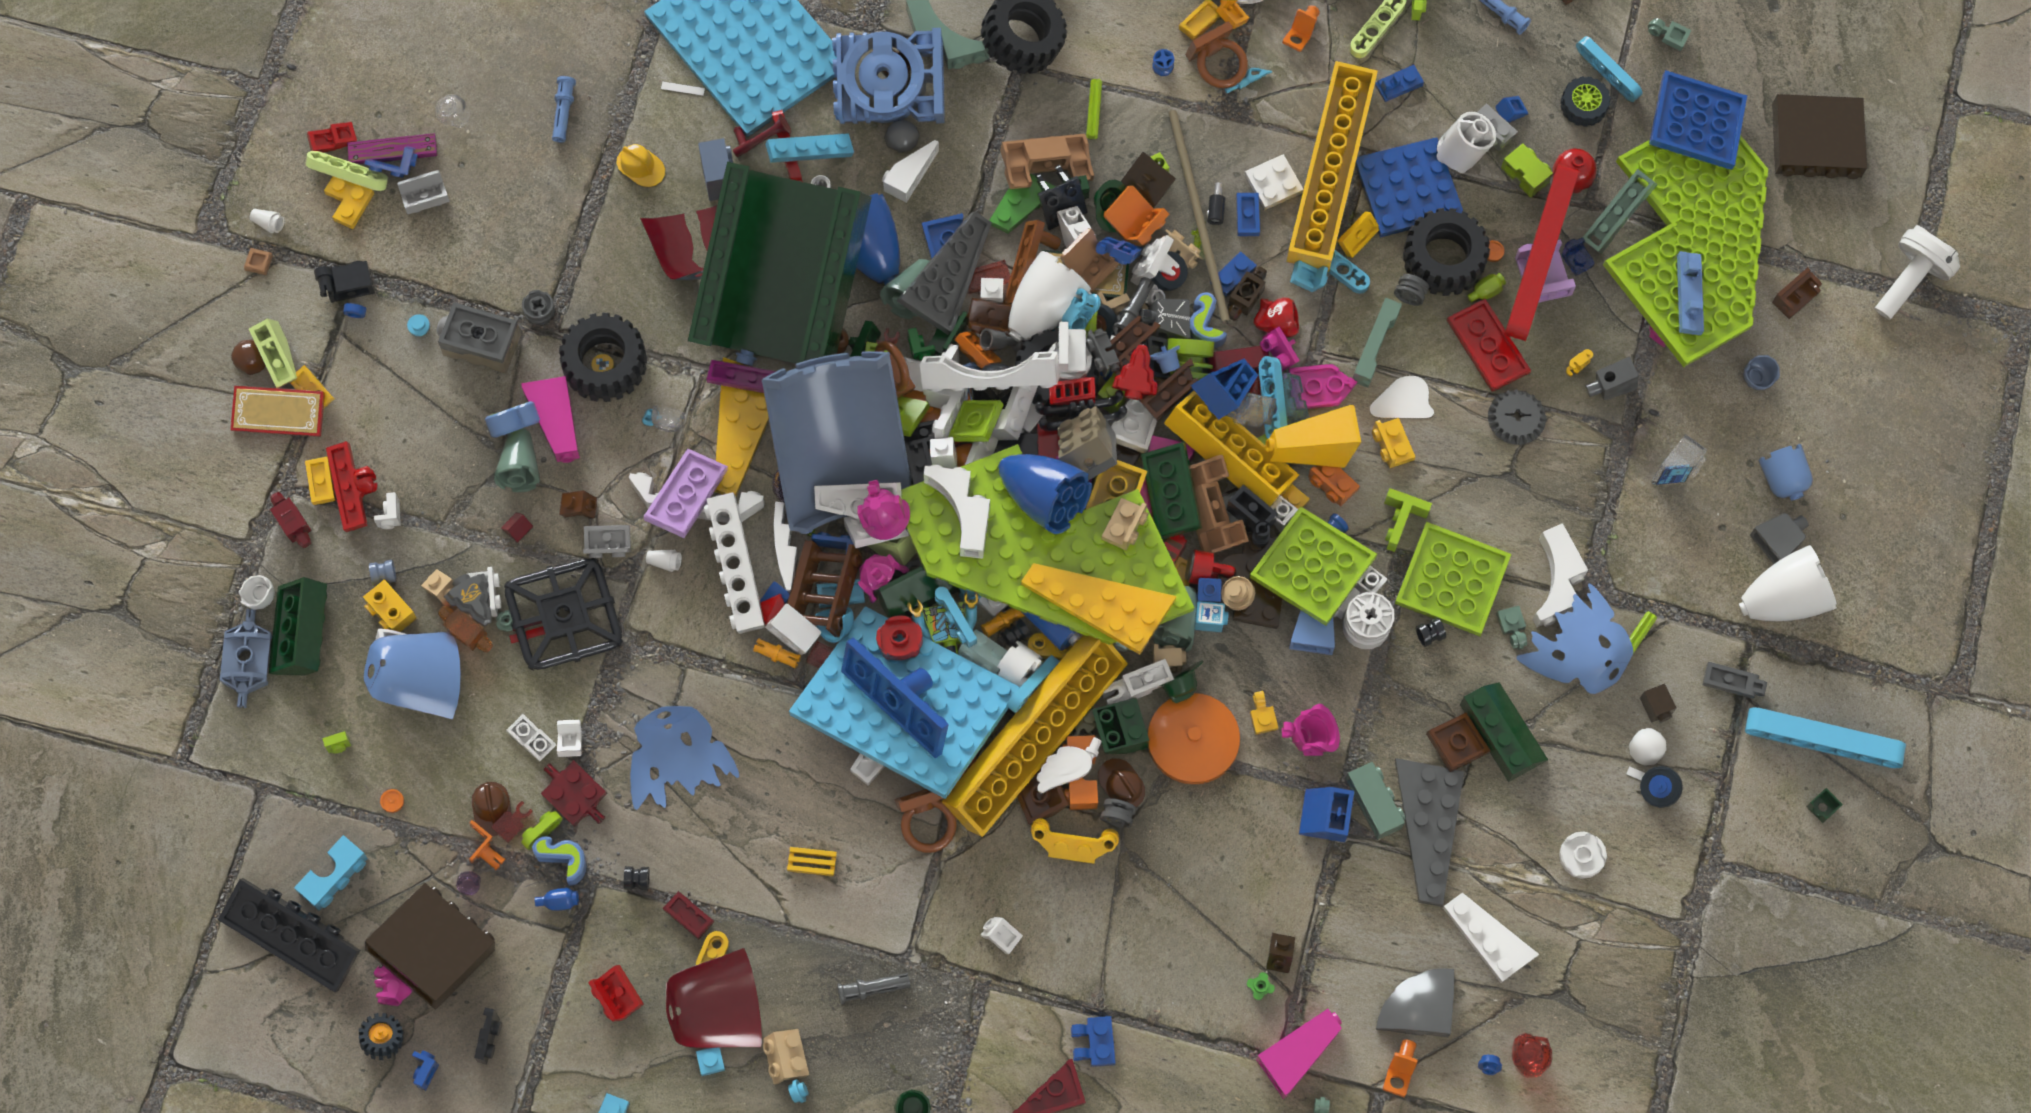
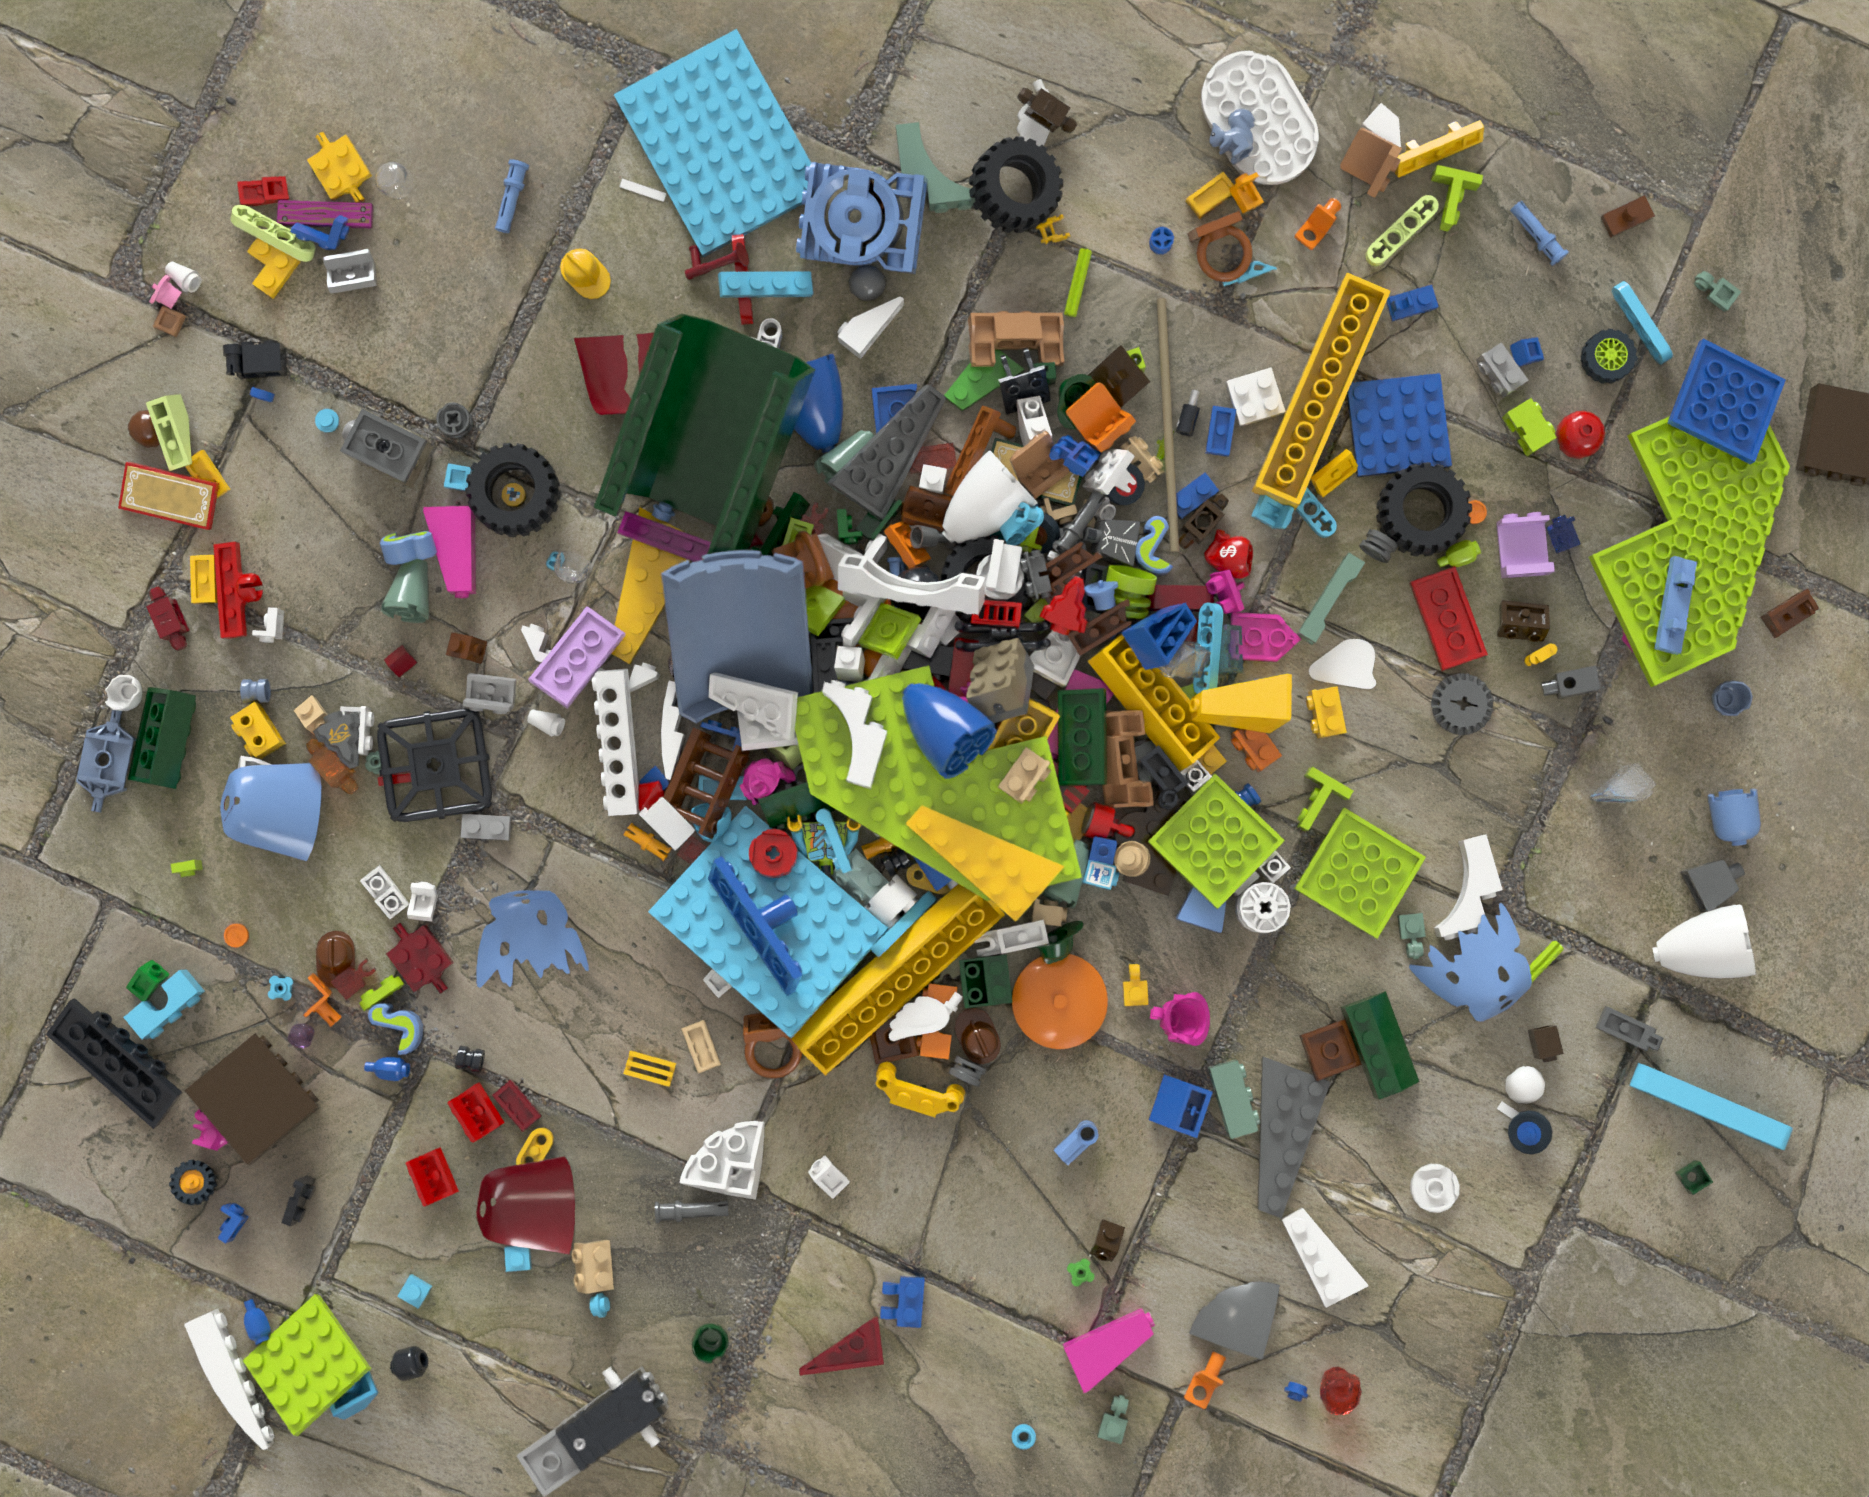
camera: 10 degrees right, 15 degrees up
(253, 235) = (165, 293): none -> bright pink piece
(310, 853) = (147, 980): none -> green bracket
(400, 108) = (339, 167): none -> yellow plate
(444, 847) = (285, 993): none -> medium azure plate
(548, 356) = (456, 477): none -> medium azure plate
(620, 664) = (486, 827): none -> light grey plate
(650, 926) = (475, 1112): none -> red bracket
(714, 158) = (662, 293): sand blue brick -> none
(858, 832) = (701, 1046): none -> tan plate
(883, 513) = (774, 723): dark pink helmet -> none
(902, 936) = (728, 1161): none -> white brick
(1066, 74) = (1054, 237): none -> yellow piece
(1233, 865) = (1075, 1144): none -> medium blue piece
(1431, 632) = (1325, 928): black wheel -> none
(1466, 141) = (1470, 389): white cylinder -> none
(1541, 252) = (1526, 529): red beam -> none
(1557, 336) = (1523, 621): none -> dark brown bracket
(1619, 211) = (1619, 494): sand green piece -> none

